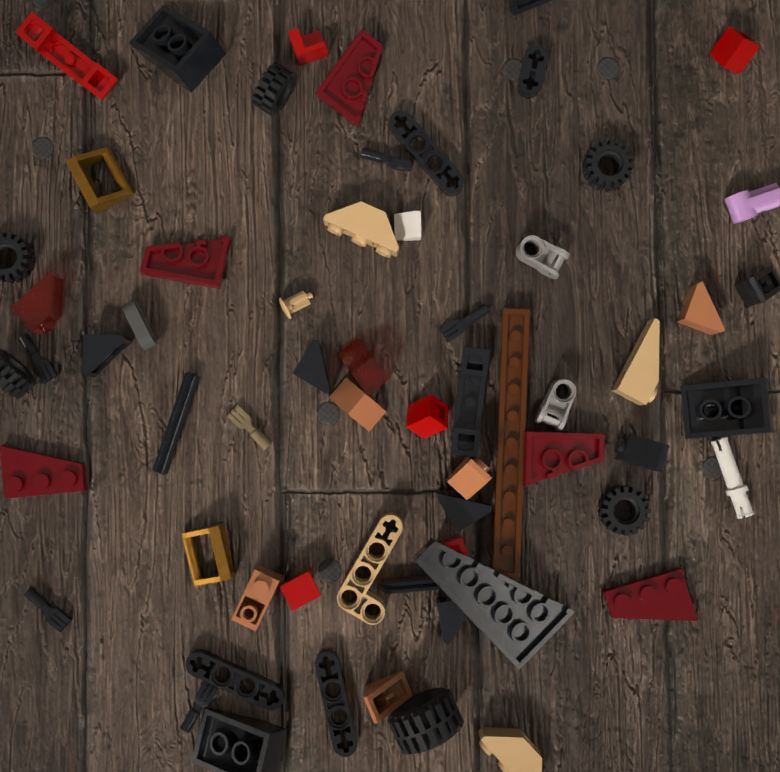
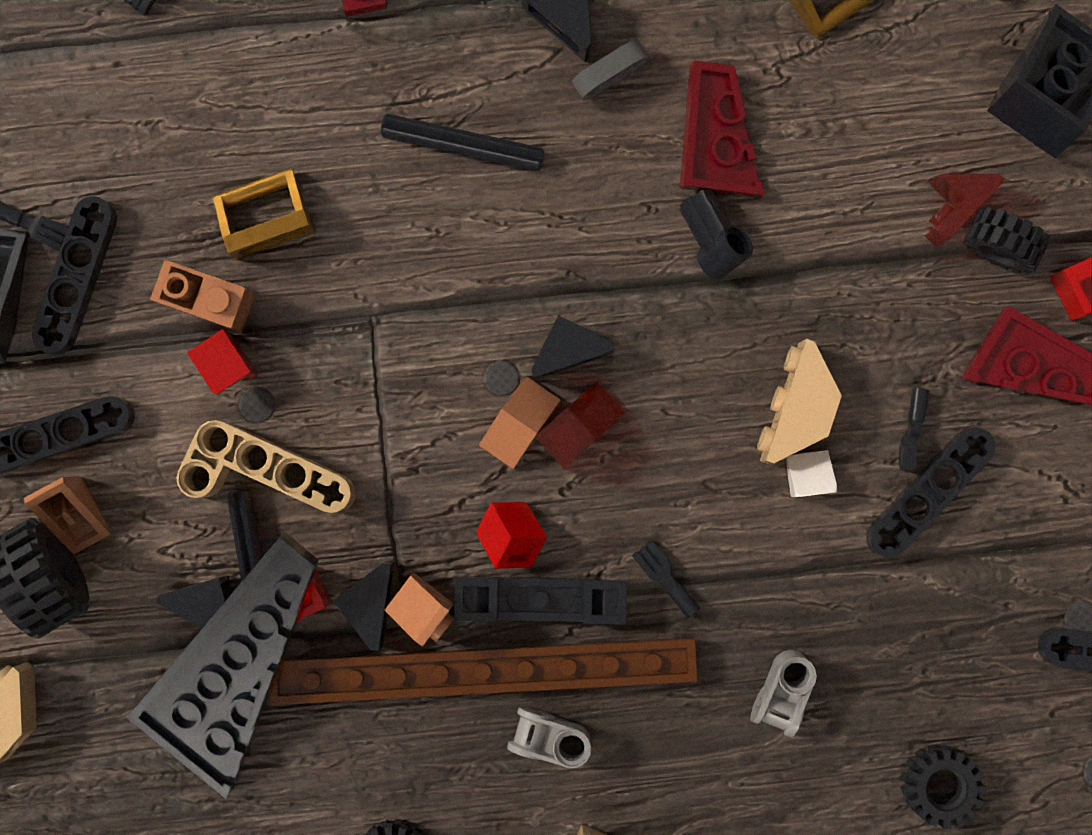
camera: 75 degrees right, 0 degrees up
(244, 112) = (965, 195): none -> clear red slope
(244, 421) = (475, 247): dark tan piece -> none
(258, 266) = (720, 243): none -> black piece
(295, 303) = (670, 308): tan piece -> none
(556, 453) = (472, 744): dark red wing -> none

